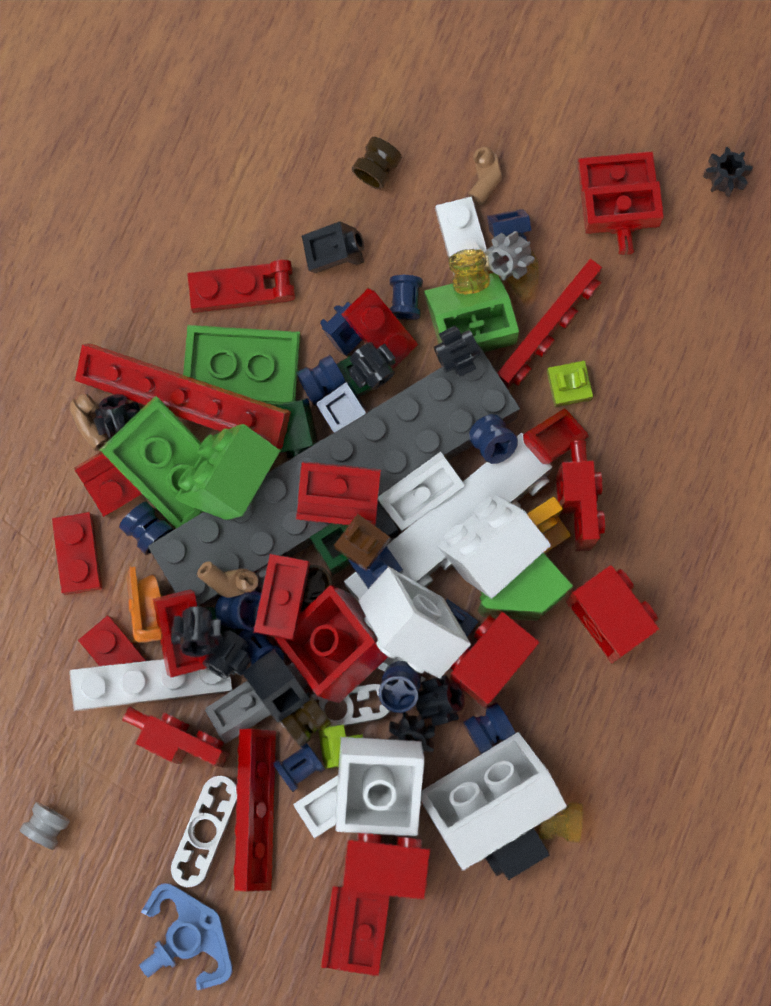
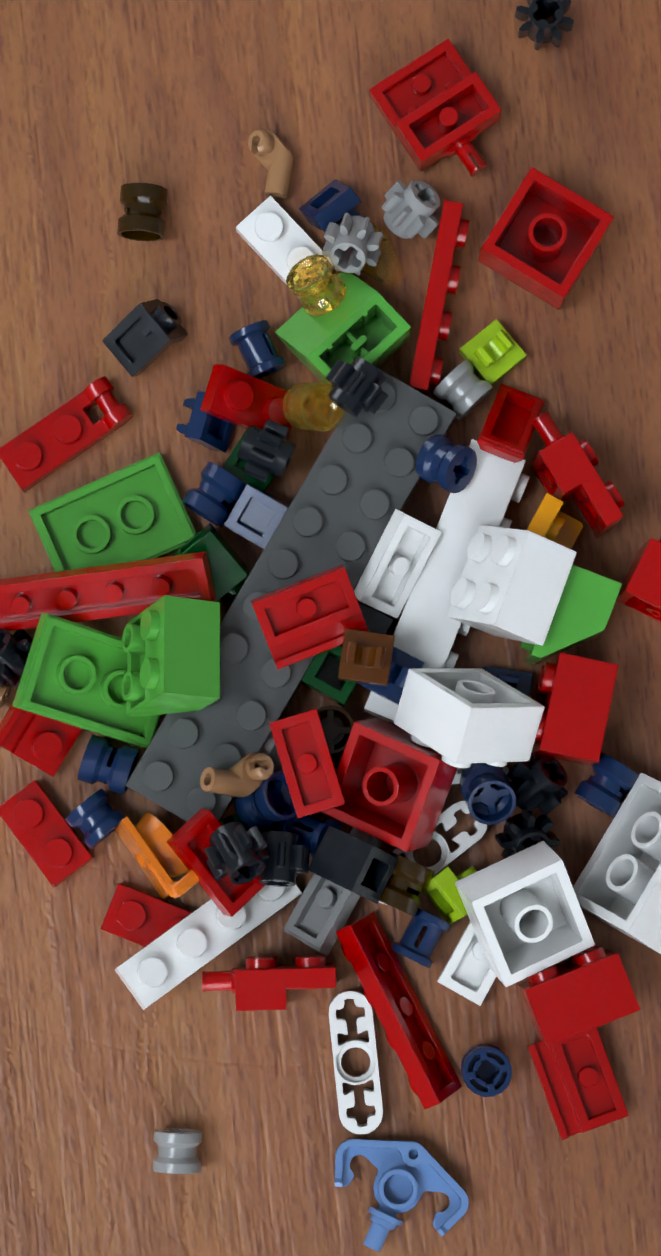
camera: 30 degrees left, 5 degrees up
(116, 560) = (95, 818): none -> dark blue wheel
(298, 884) = (482, 1062): none -> dark blue wheel
(426, 358) = (323, 412): none -> clear yellow wheel
(534, 397) = (463, 389): none -> light grey wheel
(564, 254) = (411, 209): none -> light grey gear
(648, 321) = (545, 238): none -> red brick

